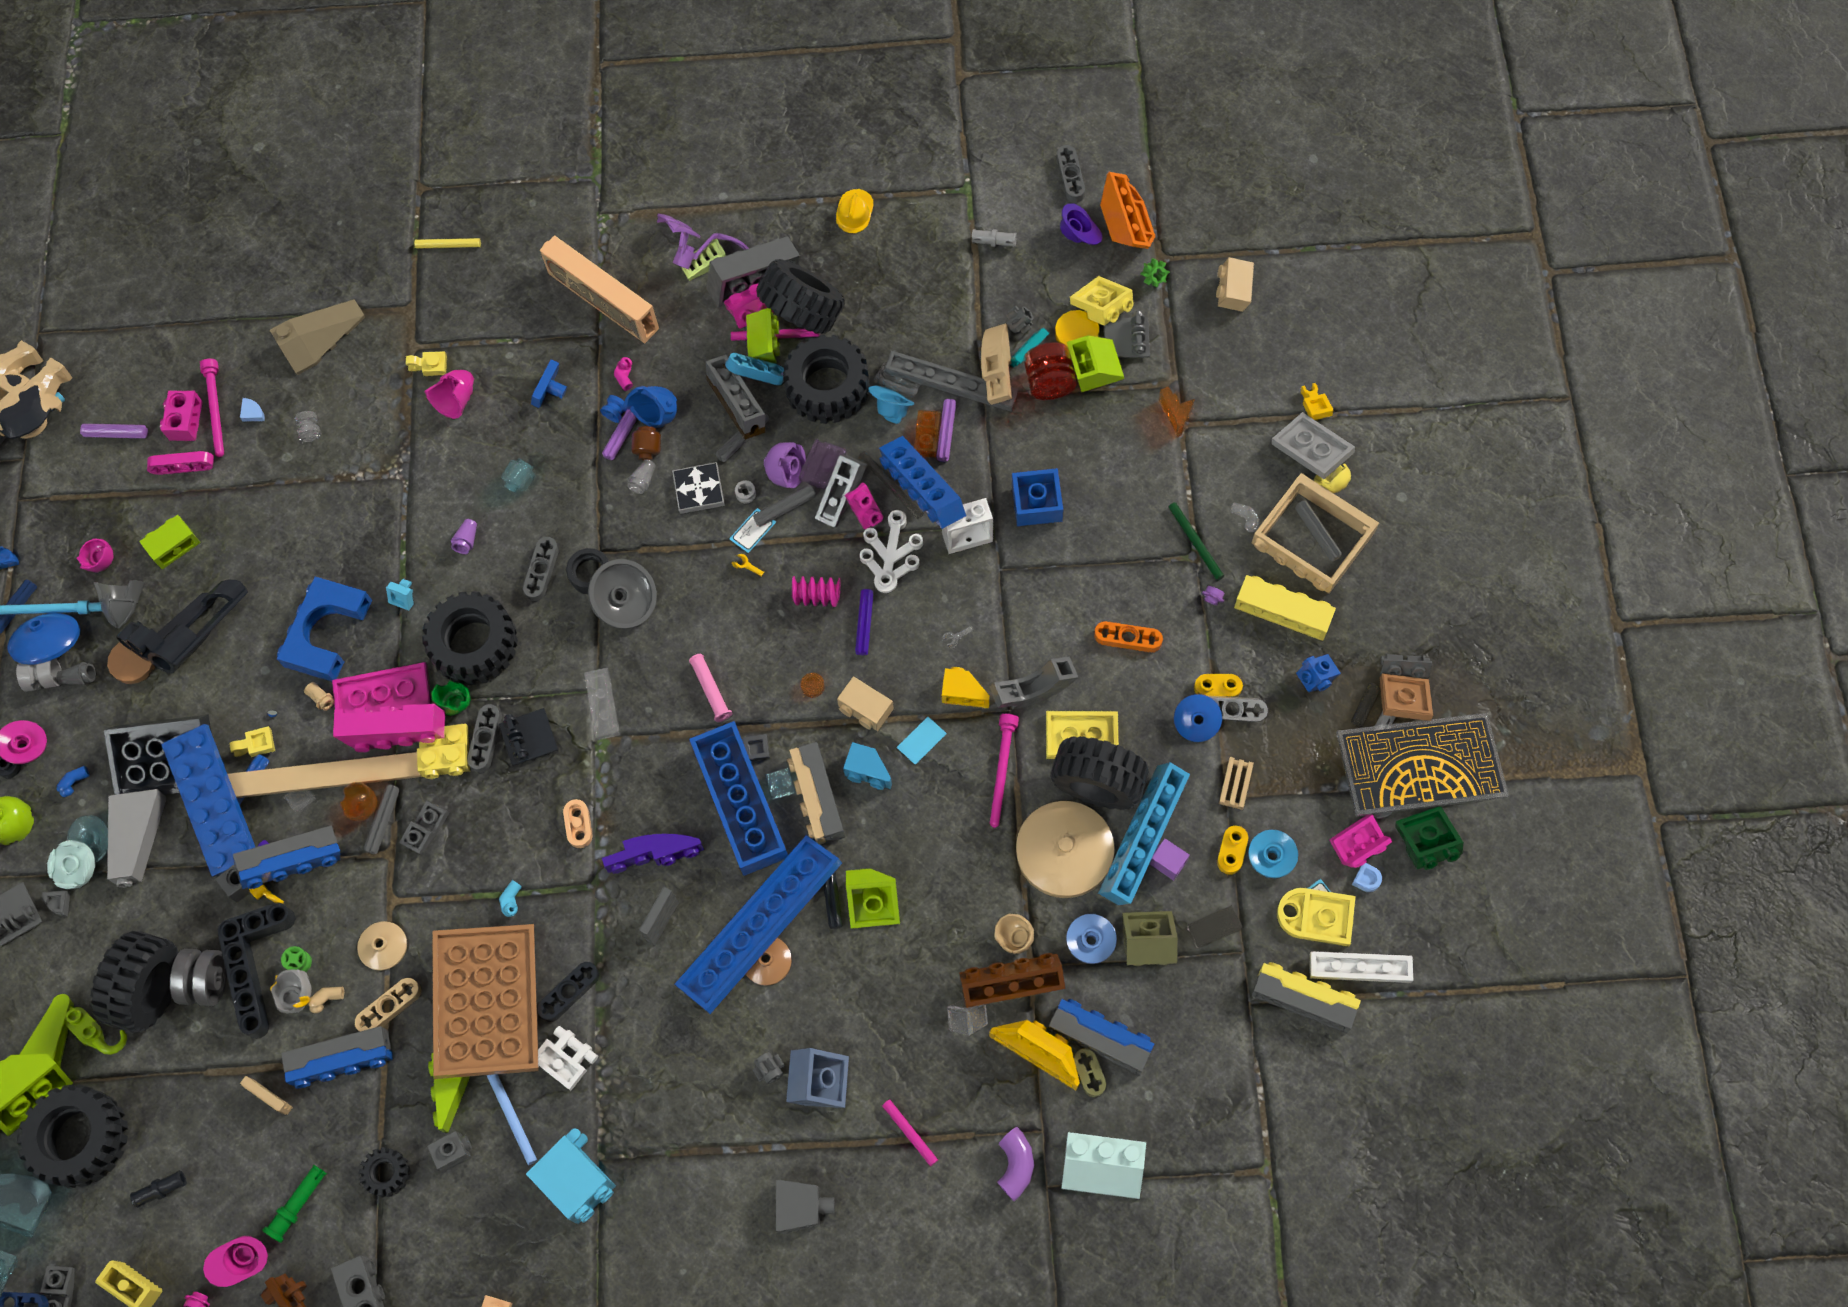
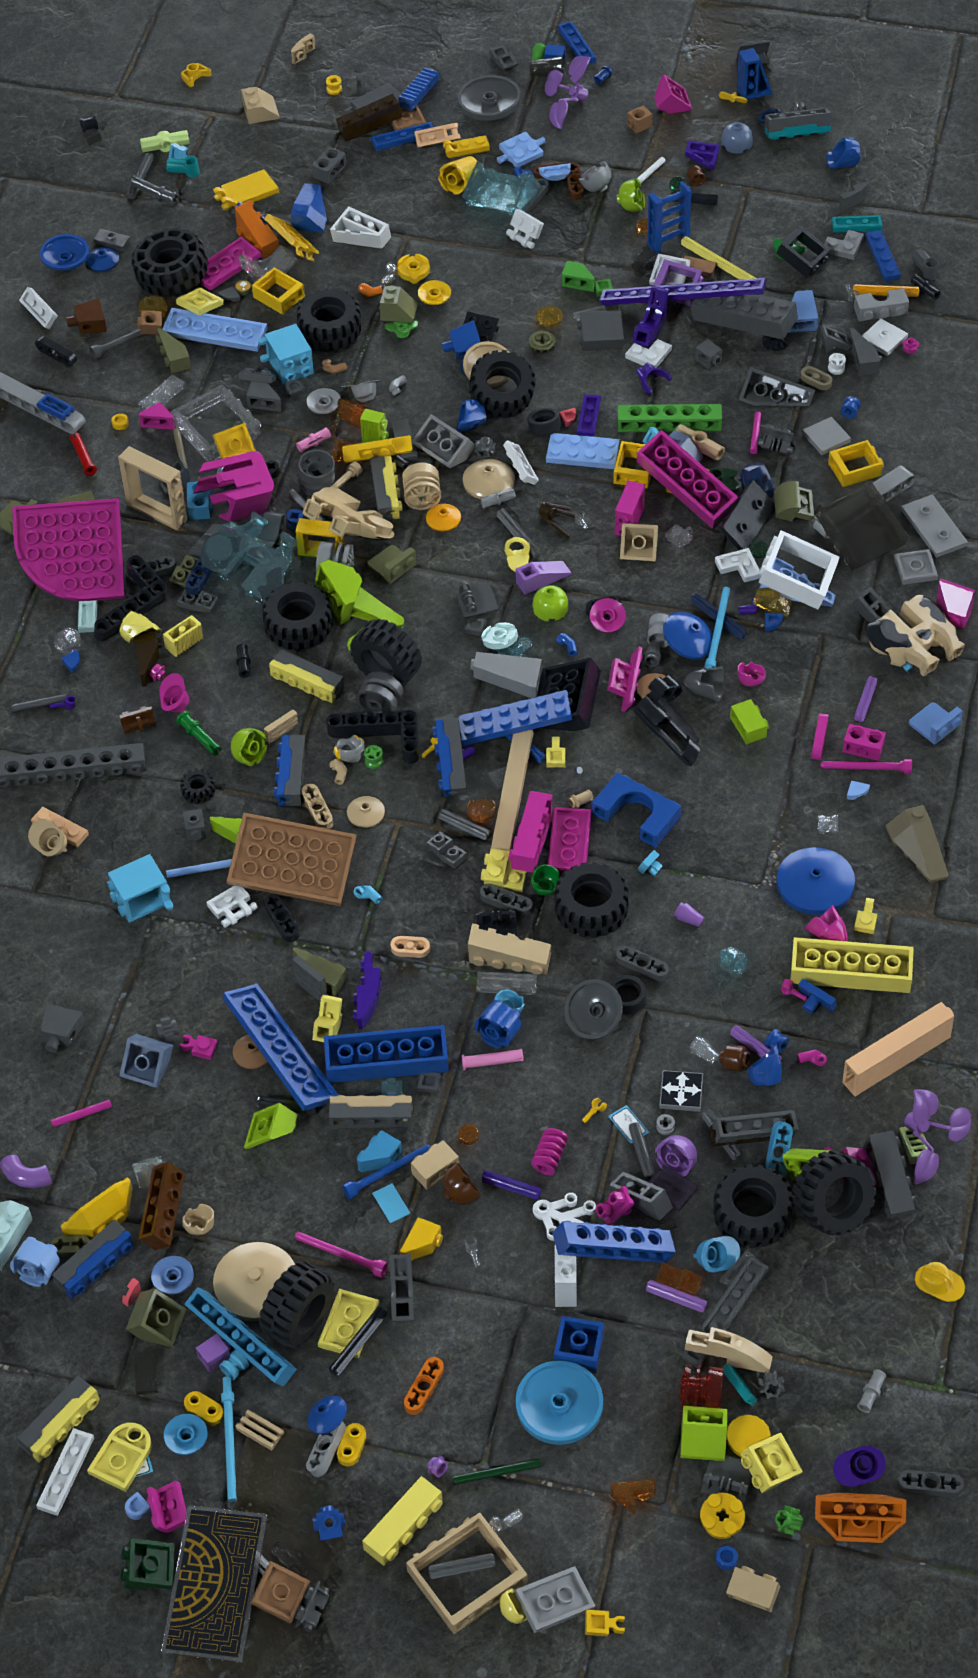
camera: 105 degrees right, 15 degrees down
(122, 693) = (624, 678): none -> dark pink bracket
(141, 350) = (935, 722): none -> medium blue bracket
(175, 1091) = (306, 676): none -> piece
(309, 1125) = (248, 746): none -> lime cylinder
(387, 424) = (815, 880): none -> blue dish
(500, 357) = (852, 965): none -> light yellow brick
(540, 417) = (787, 989): none -> dark pink hand
(563, 707) = (507, 951): none -> tan wedge
(633, 688) = (510, 999): none -> medium azure hair
(640, 901) = (334, 974): none -> olive slope
(667, 687) = (498, 1024): none -> blue brick
(710, 880) = (328, 1019): none -> light yellow brick
(776, 1021) = (201, 1047): none -> dark pink plate
(887, 667) = (459, 1186): none -> reddish brown cylinder
(920, 782) = (352, 1189): none -> blue piece
(1105, 712) = (357, 1341): none -> black axle
(1107, 498) = (559, 1402): none -> dark azure dish
(1126, 978) = (132, 1293): none -> coral tile
(1132, 1098) = (35, 1262): none -> light blue brick
(1168, 319) = (727, 1527): none -> yellow plate
(1176, 833) = (234, 1365): none -> medium azure wheel
(1207, 320) = (726, 1557): none -> blue tile
(1214, 827) = (227, 1400): none -> medium azure bar

